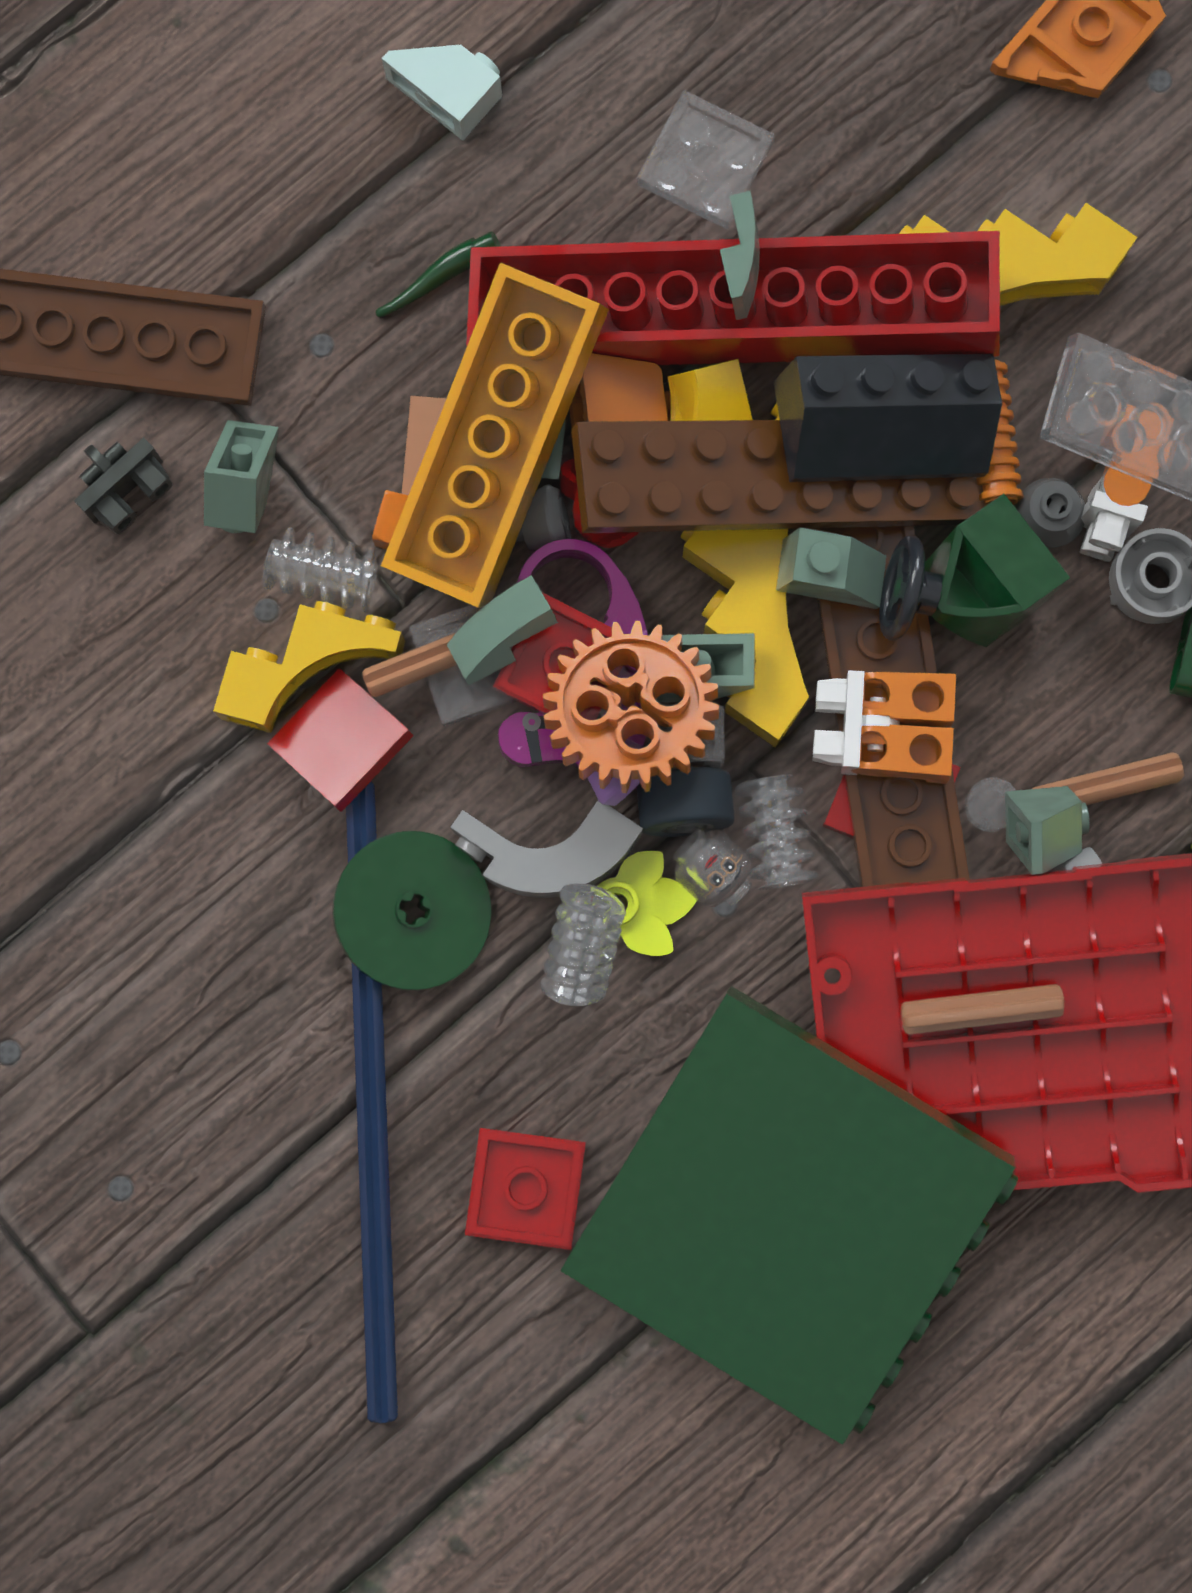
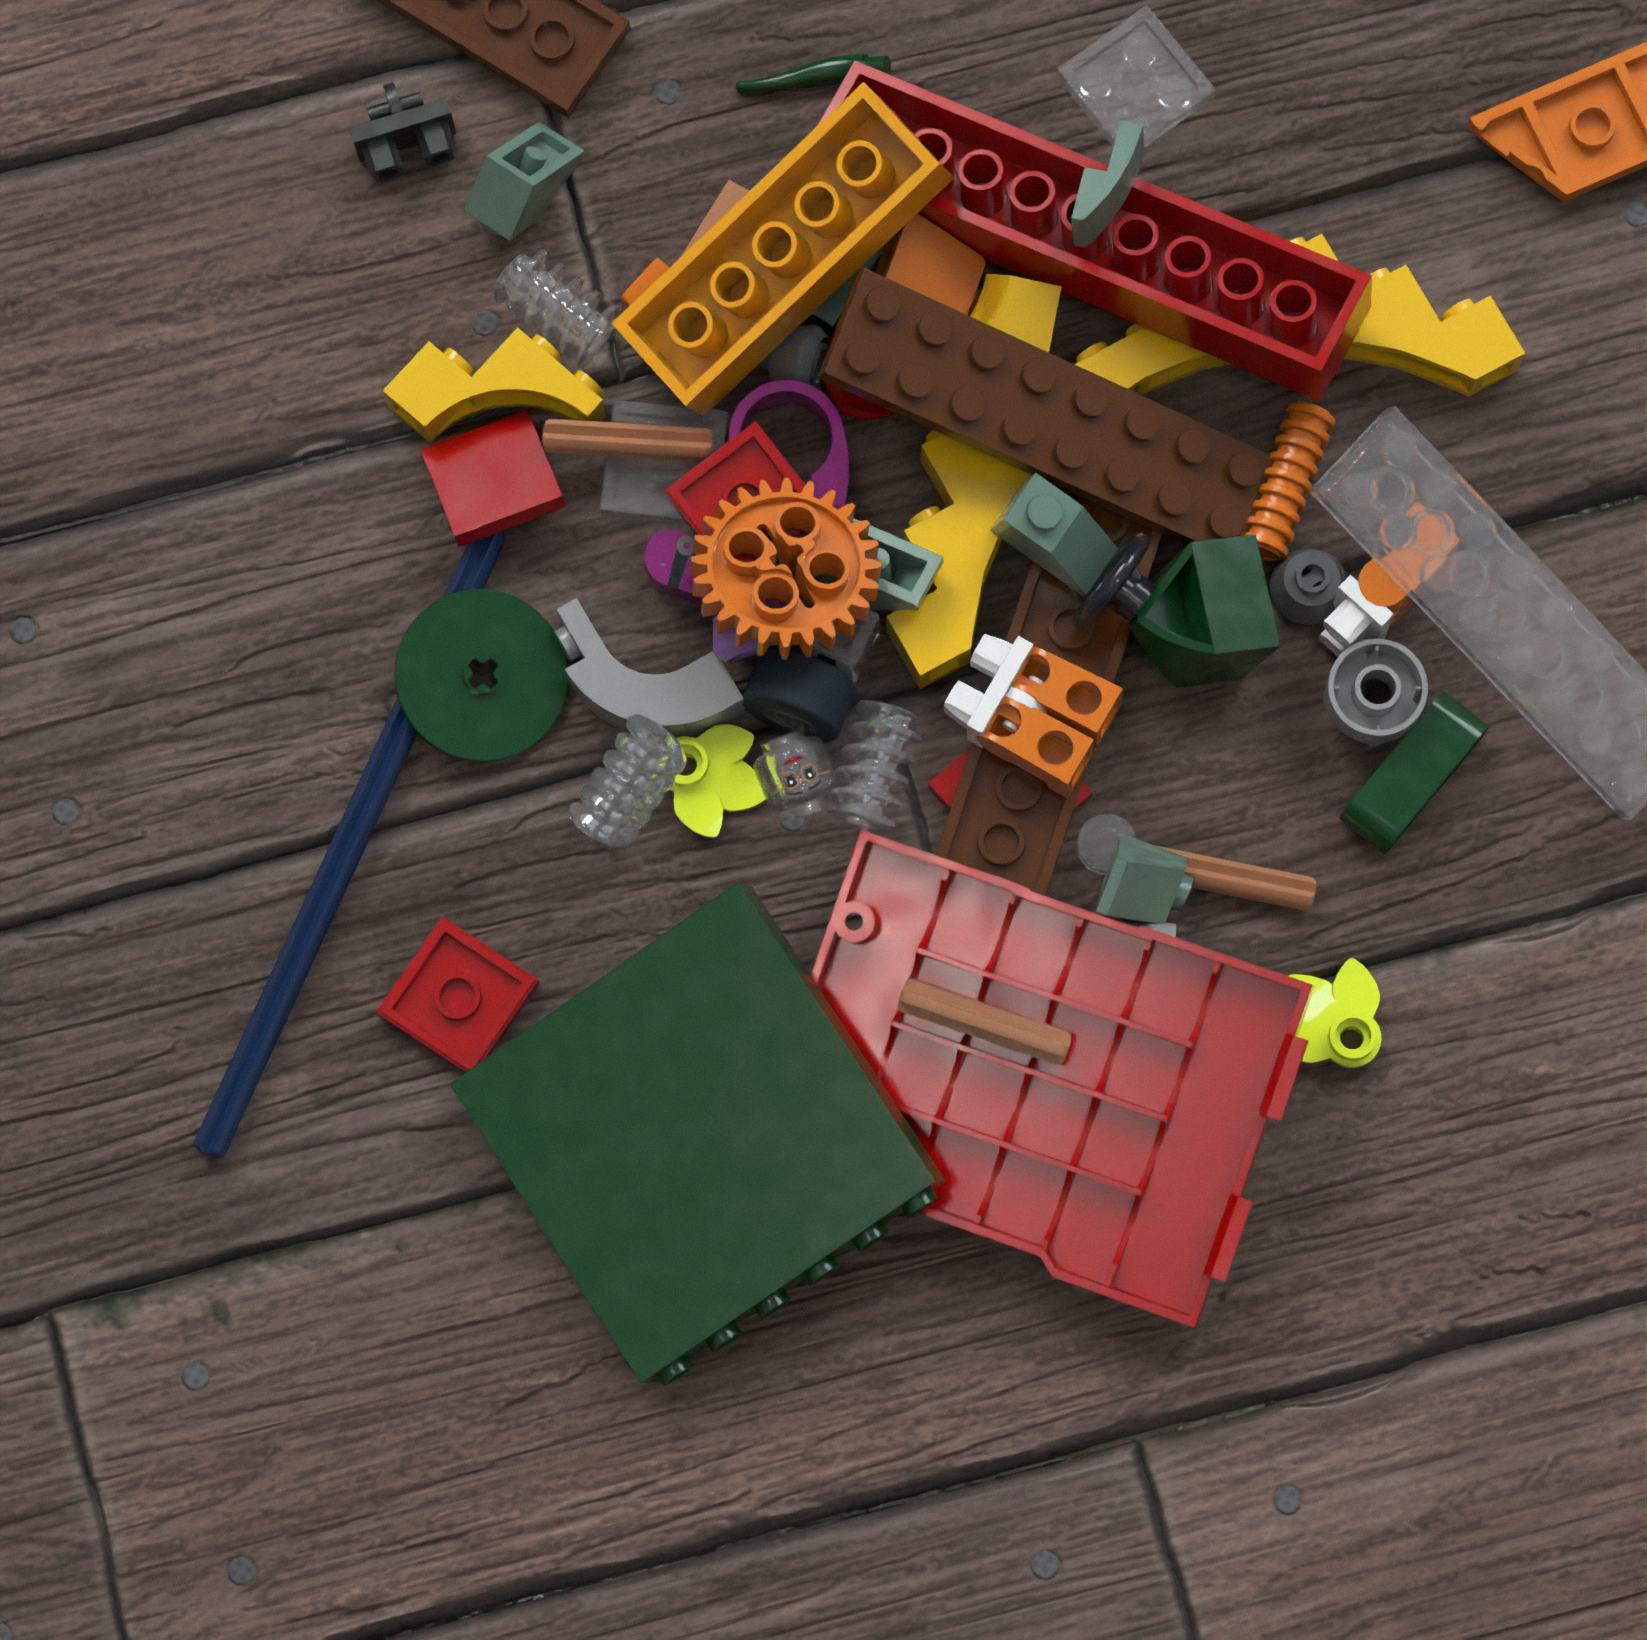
camera: 25 degrees right, 5 degrees down
(509, 618) = (711, 430): sand green slope -> none
(888, 416) = (1180, 409): black slope -> none

